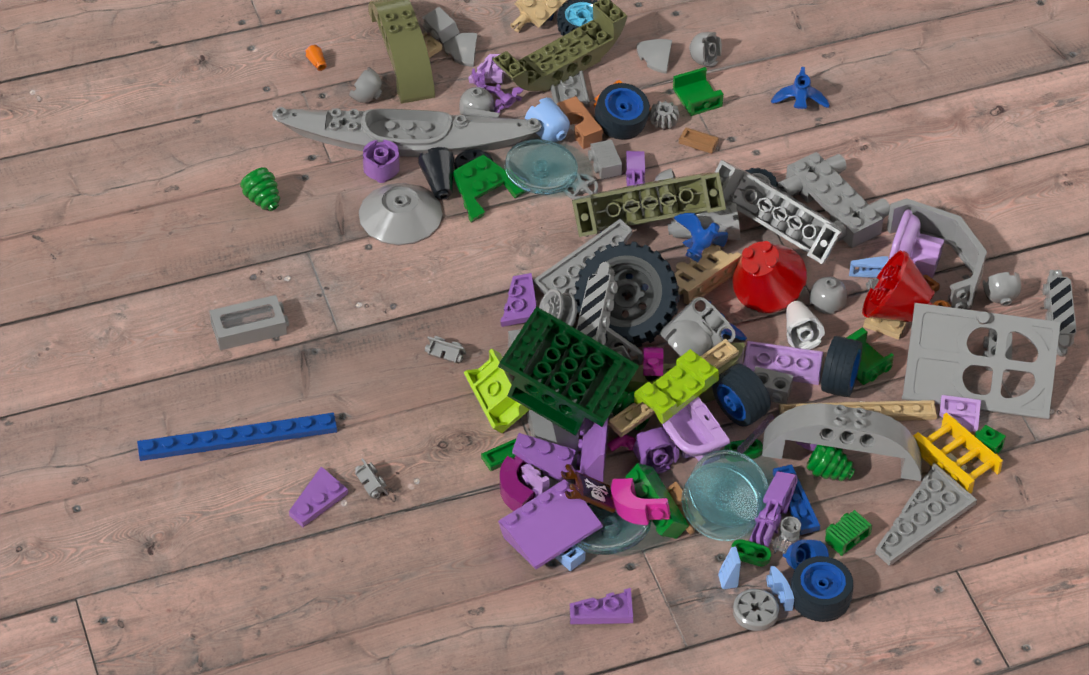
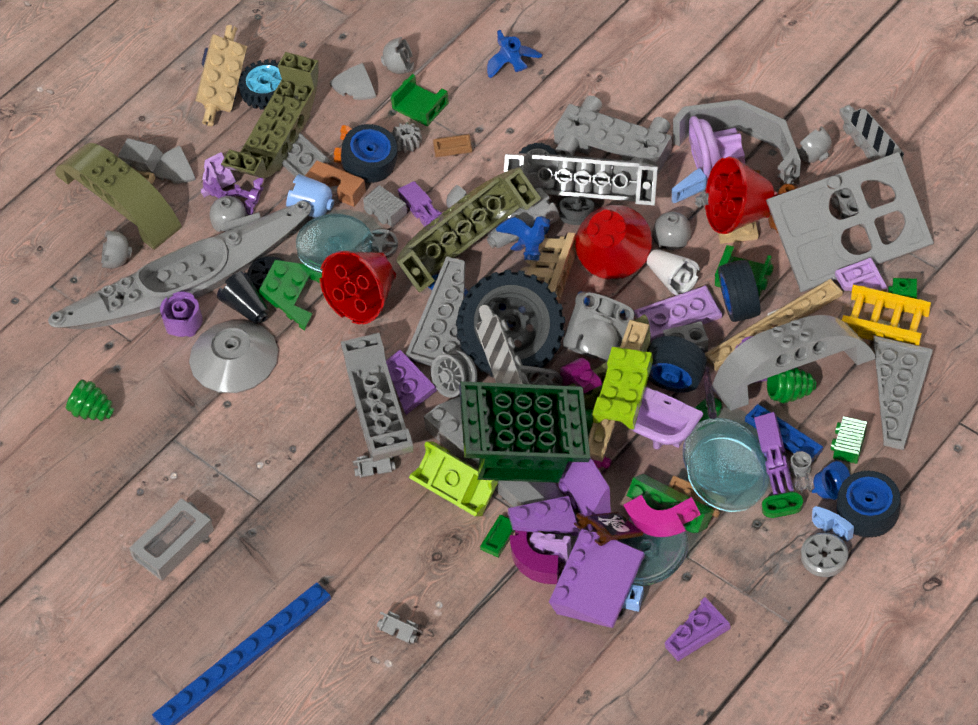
camera: 25 degrees left, 5 degrees up
(315, 56) = (41, 245): orange cone -> none
(317, 497) = (361, 672): medium lavender wing -> none
(481, 299) = (375, 398): none -> light grey slope
(534, 203) = (357, 284): none -> red cone
(656, 449) = (634, 455): medium lavender brick -> none
(730, 570) = (780, 530): light blue slope -> none
(757, 233) = (575, 209): none -> dark grey wheel

